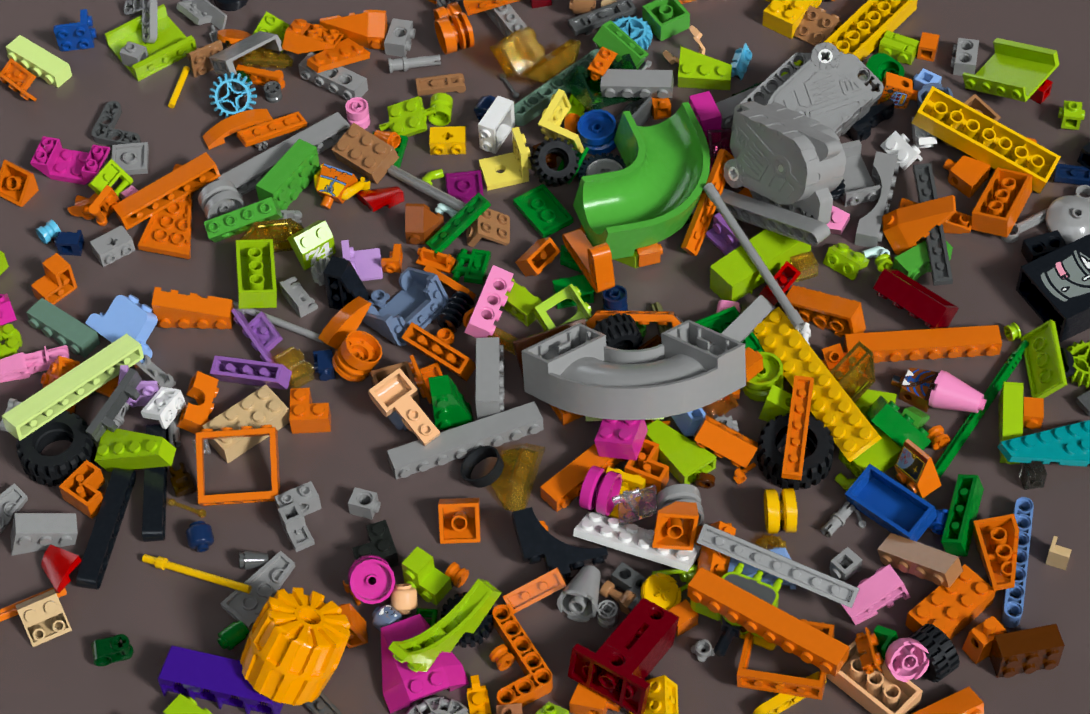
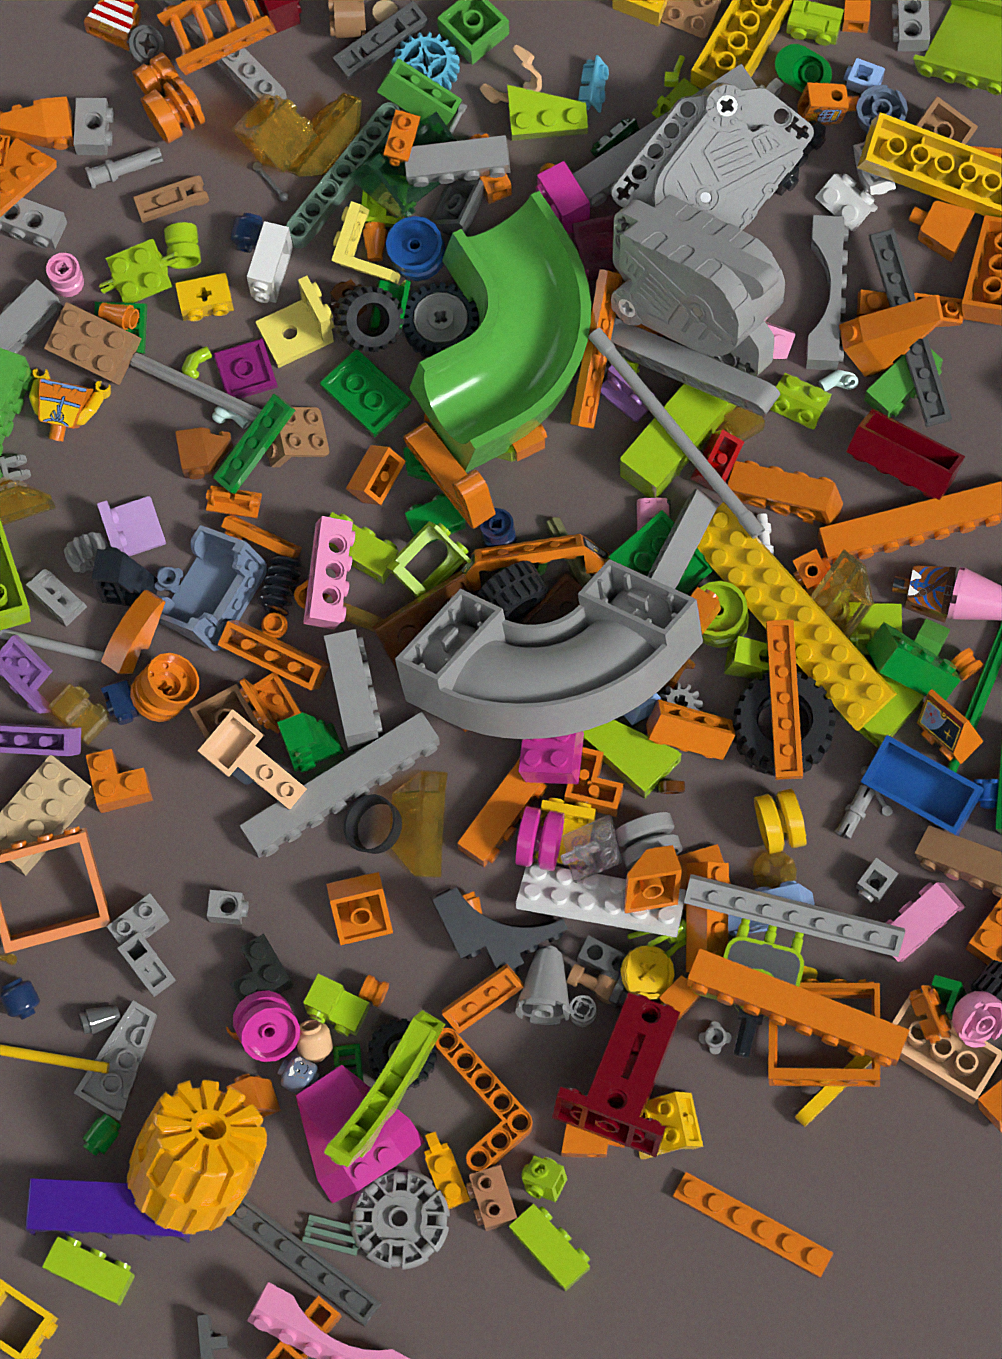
camera: 10 degrees left, 20 degrees up
(312, 243) = (55, 511): slope -> none
(381, 197) = (131, 409): red slope -> none
(394, 262) = (178, 514): orange bracket -> none
(477, 266) = (293, 502): green plate -> none
(502, 657) = (460, 1100): orange wheel -> none
(740, 473) = (715, 769): orange hand -> none
(844, 482) = (860, 756): lime arm -> none
(858, 182) = (782, 238): light grey panel -> none
(883, 262) = (851, 396): lime bush -> none

